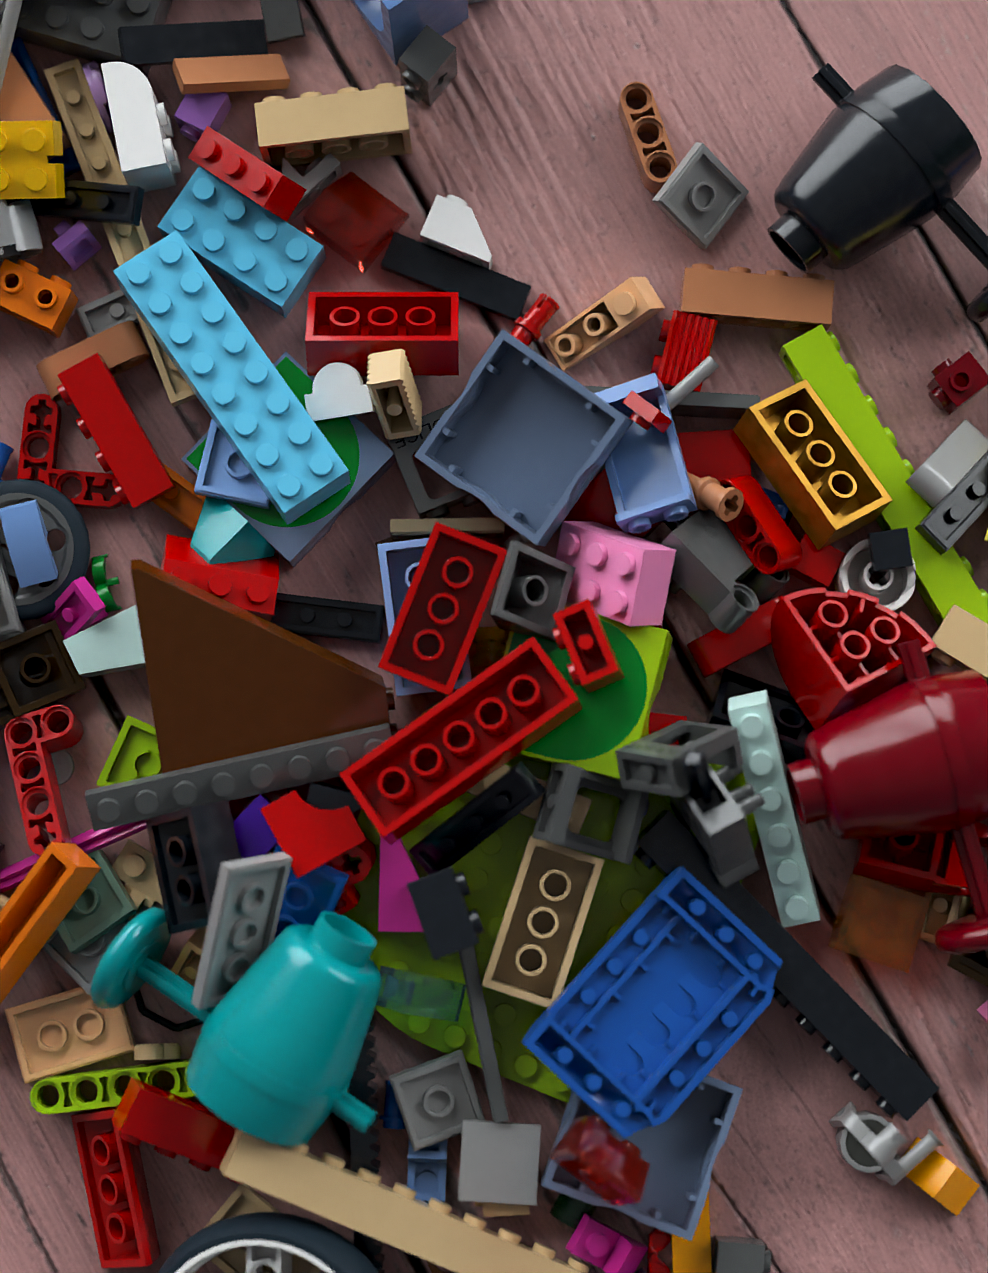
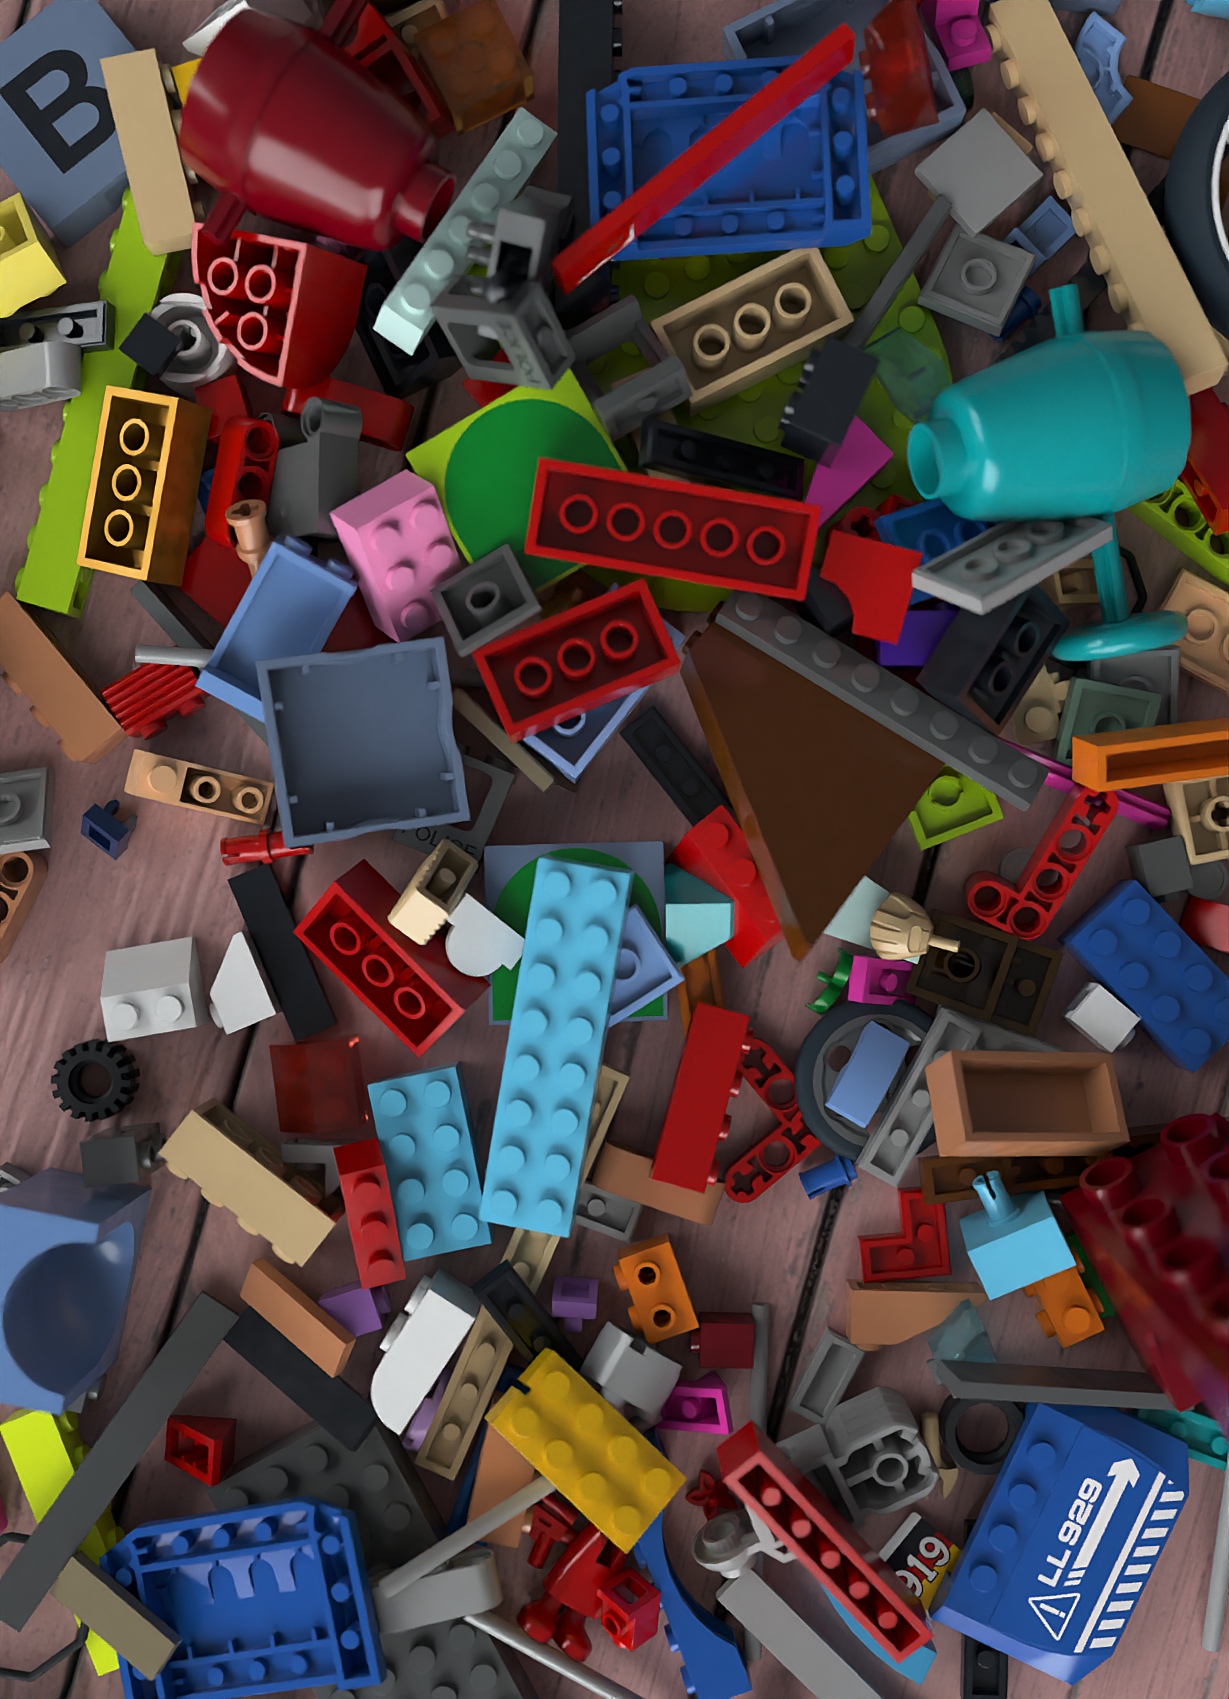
camera: 140 degrees left, 5 degrees up
(89, 652) = (904, 930): none -> tan piece
(157, 1051) = (1166, 548): tan tile -> none
(485, 73) = (70, 1086): none -> black tyre
(509, 178) = (152, 989): none -> white slope
(588, 646) = (485, 501): red brick -> none
(631, 243) = (106, 831): none -> dark blue tile
(645, 413) = (238, 658): plate -> none
(663, 983) = (704, 159): none -> red tile

